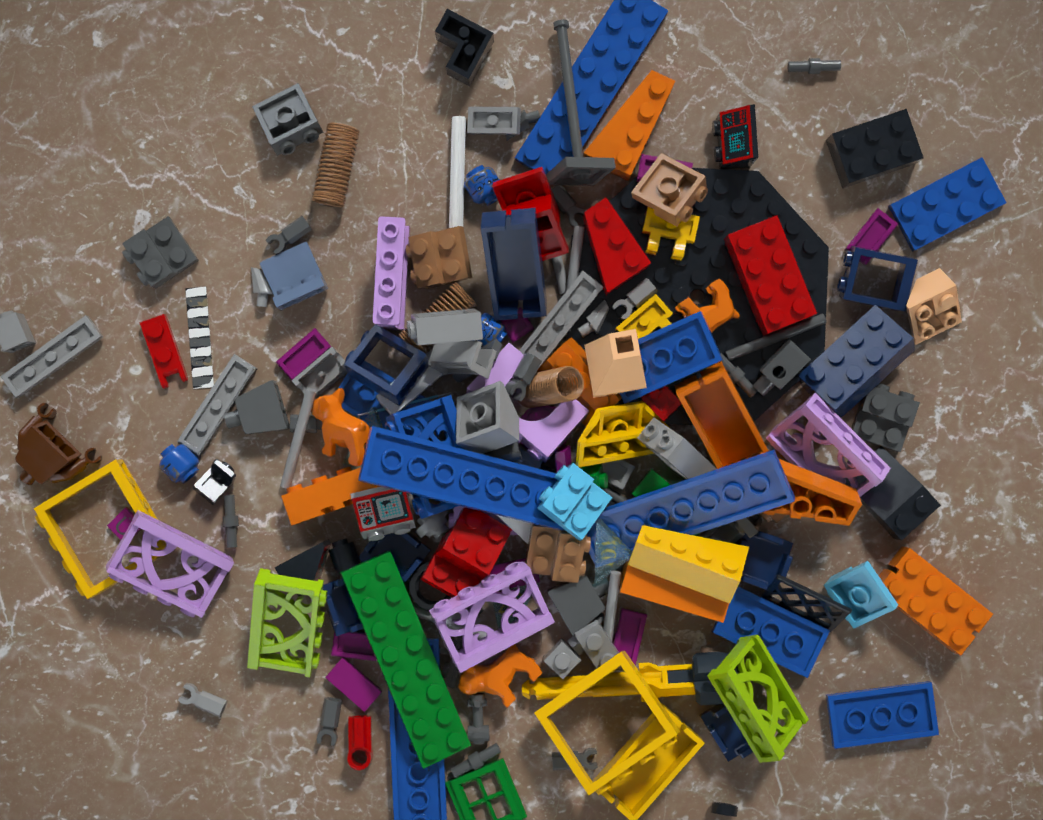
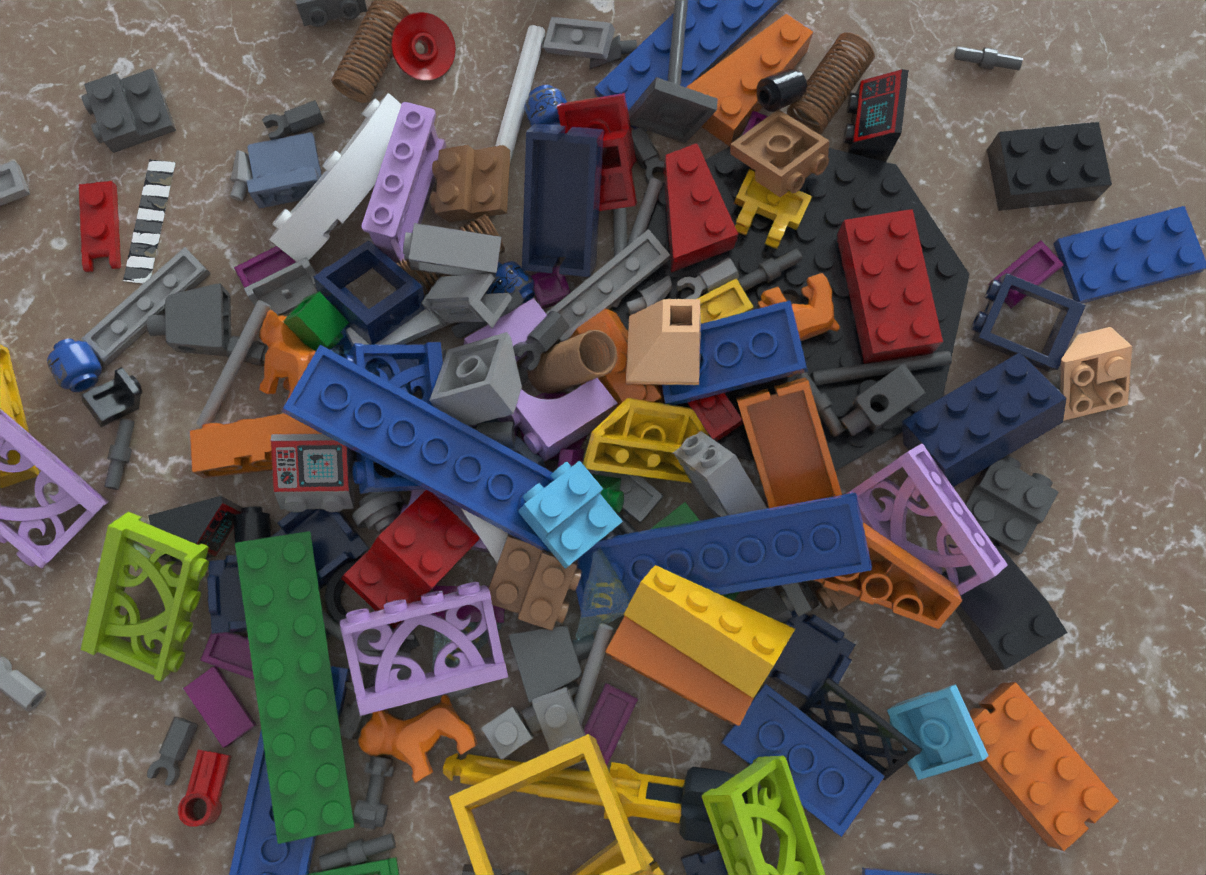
camera: 15 degrees right, 10 degrees down
(347, 280) = (341, 187): none -> white brick
(354, 397) = (316, 322): none -> green brick
(385, 153) = (436, 39): none -> red dish
(660, 137) = (781, 89): none -> black brick
(679, 279) = (770, 269): none -> dark grey bar
(685, 148) = (813, 111): none -> medium nougat piece

